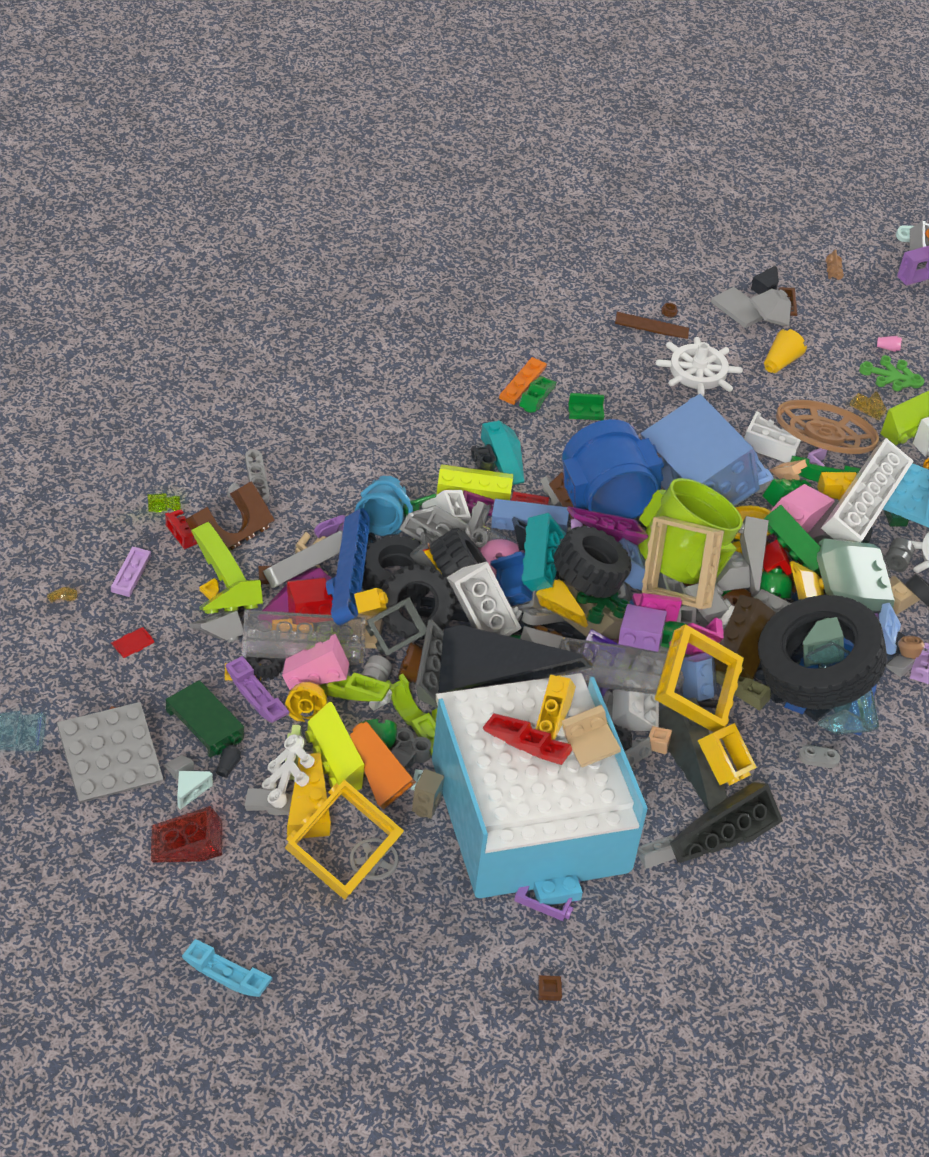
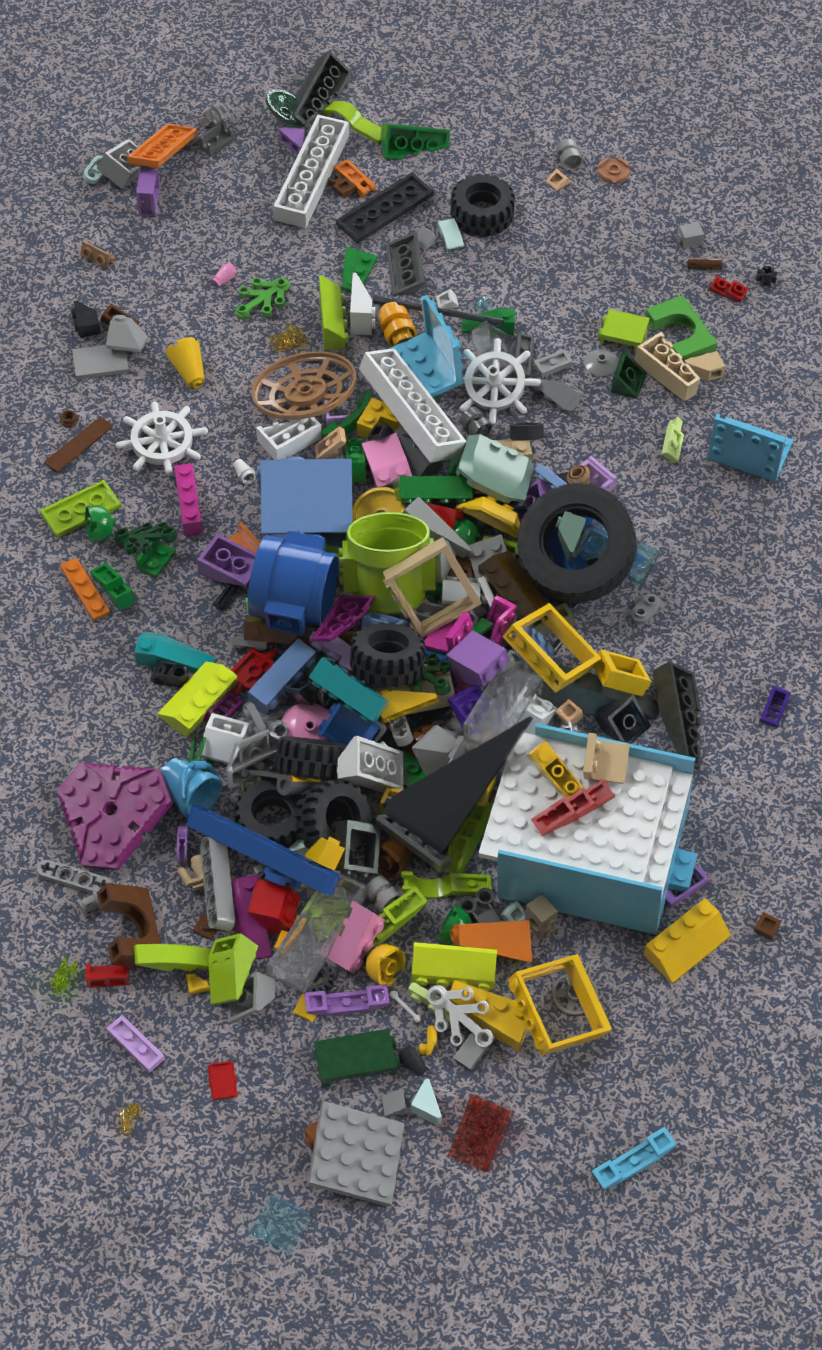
camera: 55 degrees left, 10 degrees up
(253, 767) = (431, 1041): none -> yellow arm
(273, 750) = (394, 995): none -> white hinge
(328, 465) = (92, 796): none -> magenta plate
(486, 924) = (687, 940): none -> yellow slope
(585, 360) = (99, 523): none -> green cylinder
(589, 384) = (124, 536): none -> dark green plant
(594, 349) = (69, 512): none -> lime tile
(640, 411) = (188, 499): none -> dark pink arch
(684, 783) = (623, 720): none -> black slope
(815, 907) = (778, 692): none -> dark purple slope
(826, 489) = (380, 431): none -> black slope

